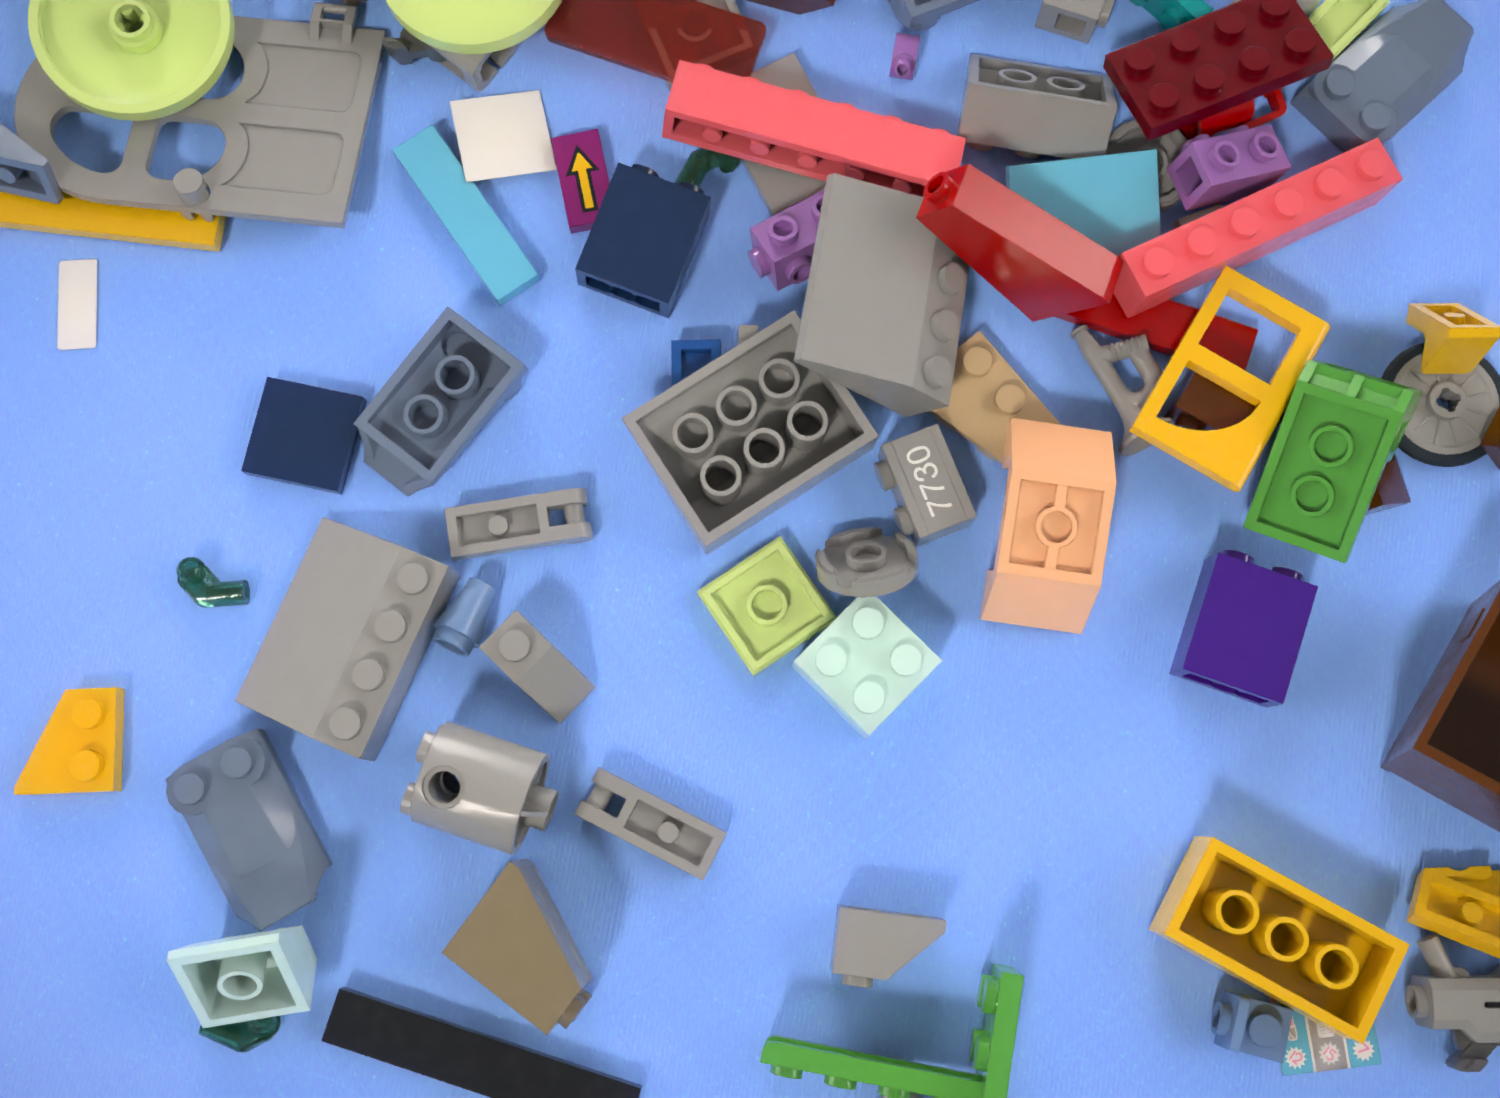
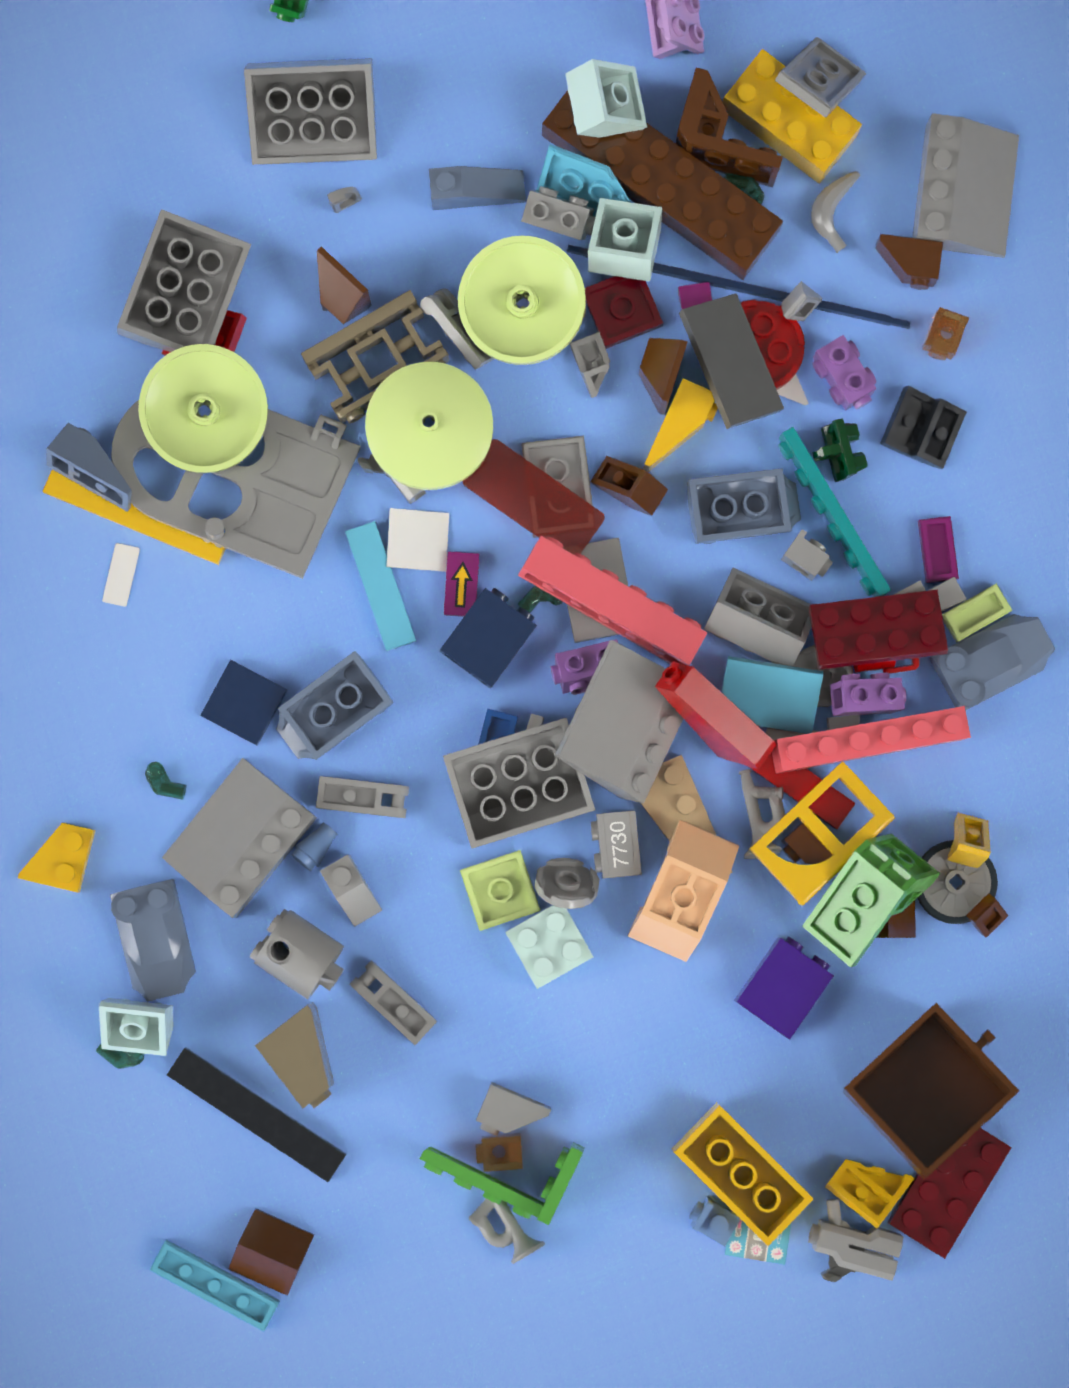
camera: 10 degrees right, 5 degrees up
(904, 56) = (688, 561): medium lavender piece -> none
(904, 1020) = (509, 1161): none -> clear orange brick

